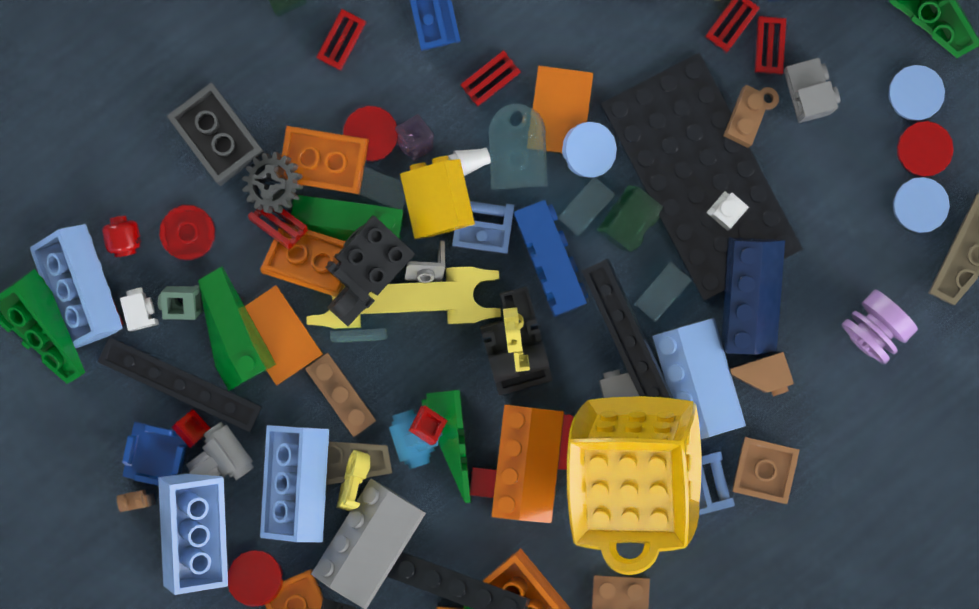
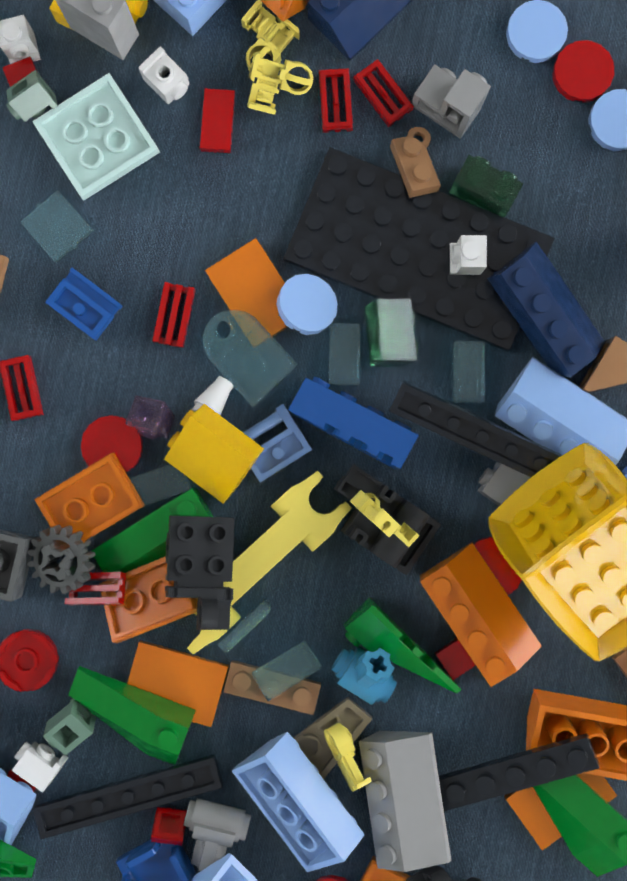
camera: 45 degrees left, 0 degrees up
(361, 389) = (286, 670): none -> clear light blue tile
(427, 271) = (258, 522): light grey bracket -> none
(427, 425) = (371, 659): red tile -> none
(784, 173) = (486, 186): none -> clear green brick

